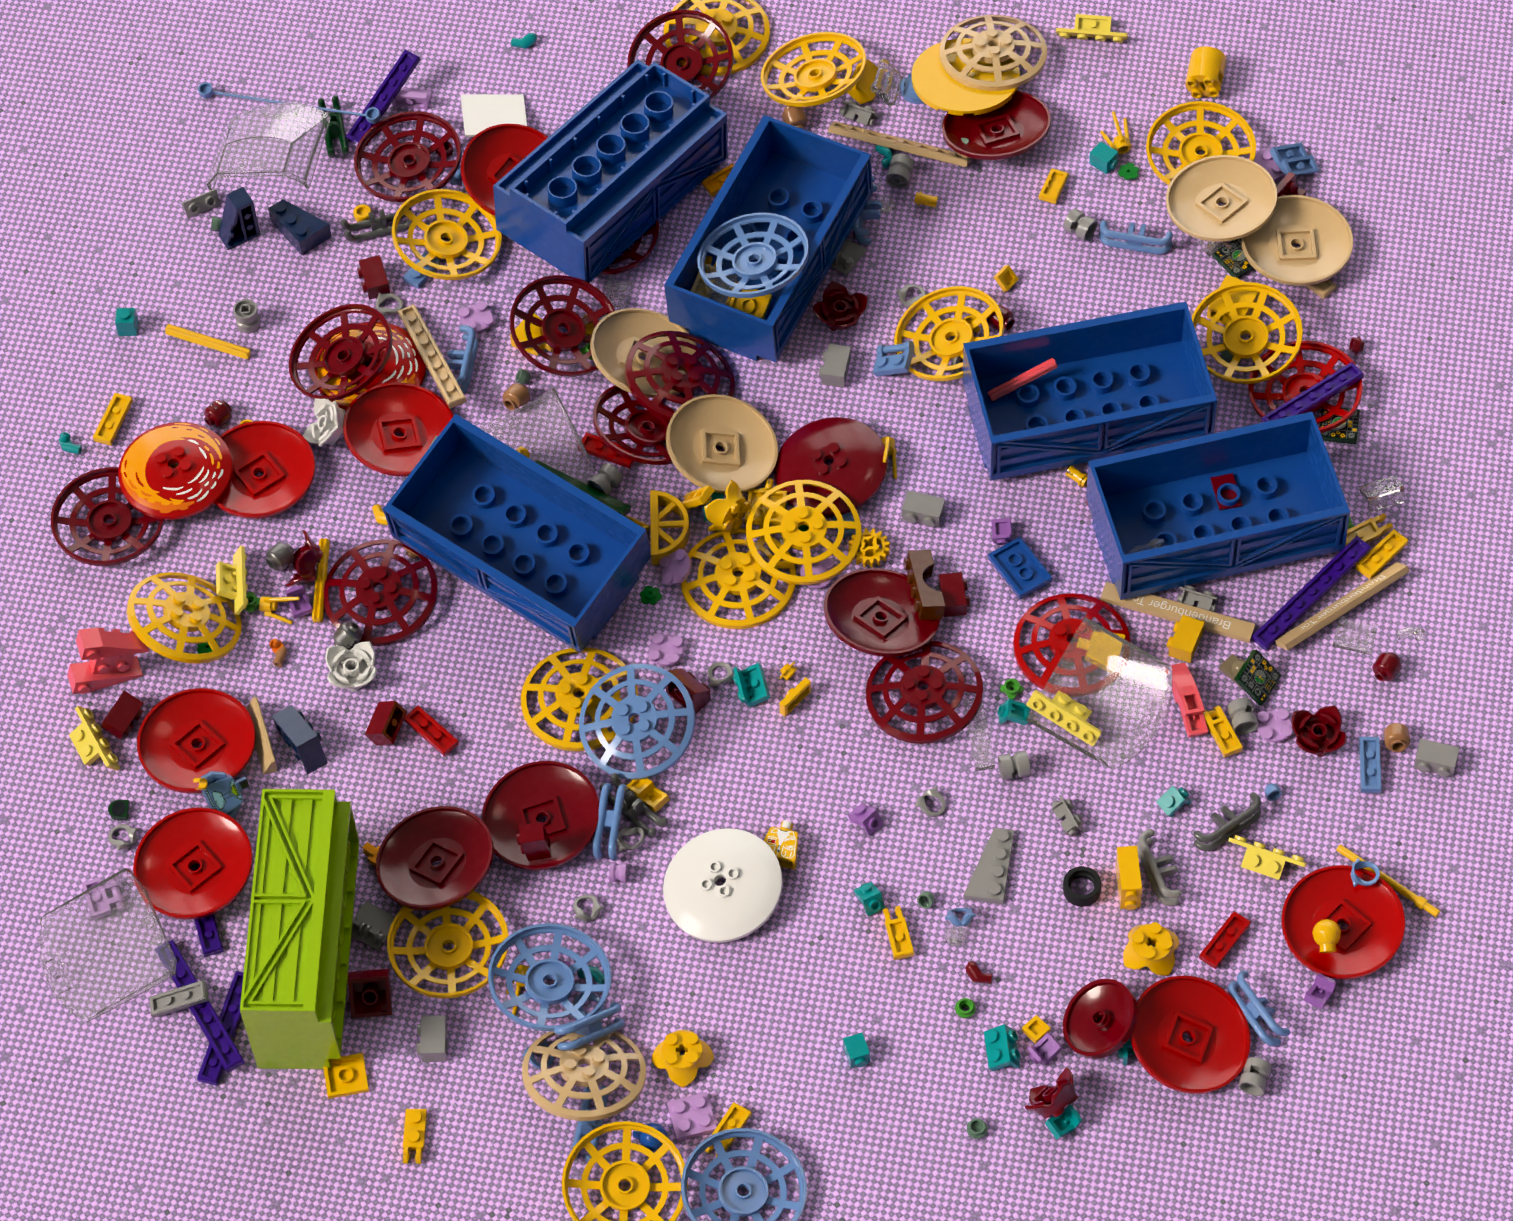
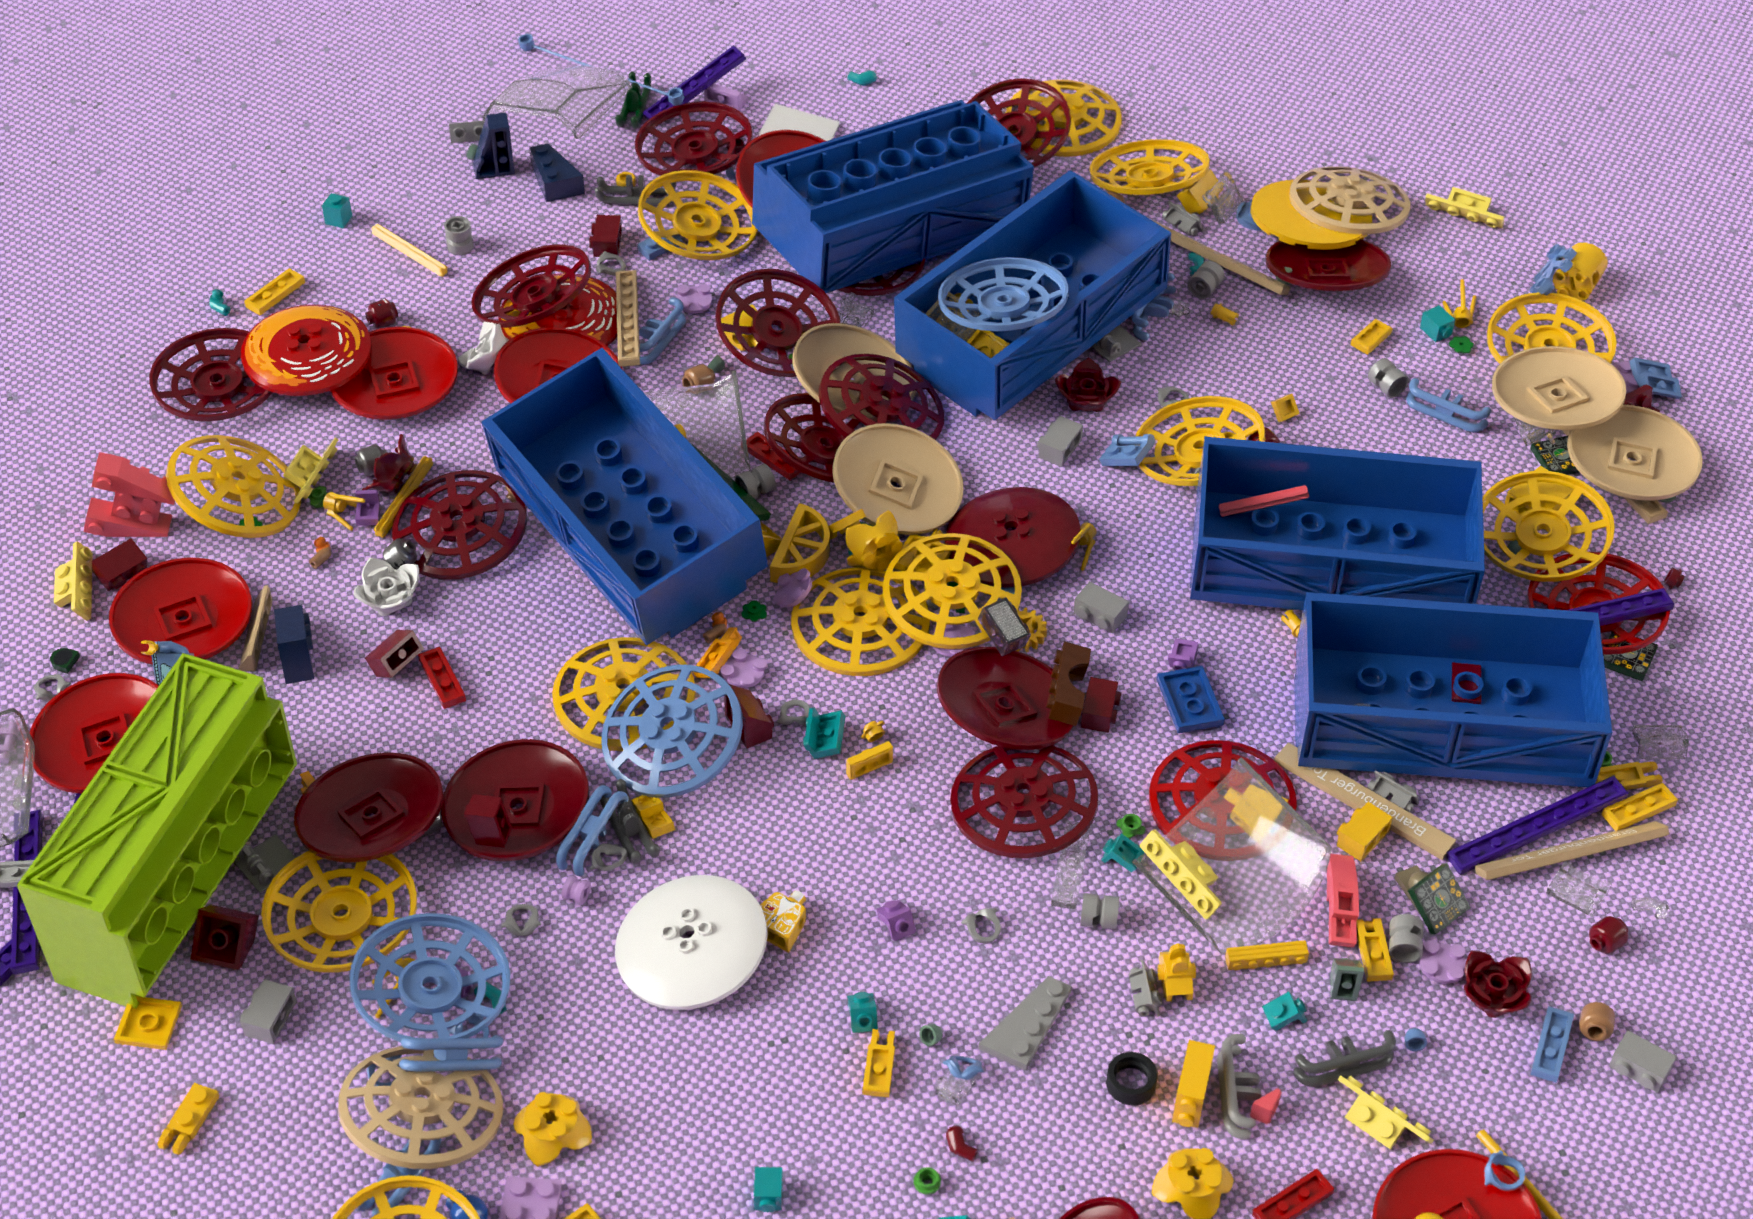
camera: 15 degrees right, 10 degrees down
(629, 618) = (718, 629): none -> medium nougat arm
(640, 642) = (719, 652): none -> light orange hinge
(858, 553) = (1004, 626): none -> brick
(1087, 797) = (1176, 972): none -> yellow hinge
(1146, 760) = (1266, 955): none -> yellow piece
(1181, 61) = (1543, 279): none -> medium blue plant
(1183, 878) = (1266, 1106): none -> coral slope
(1209, 761) = (1345, 979): none -> sand green slope

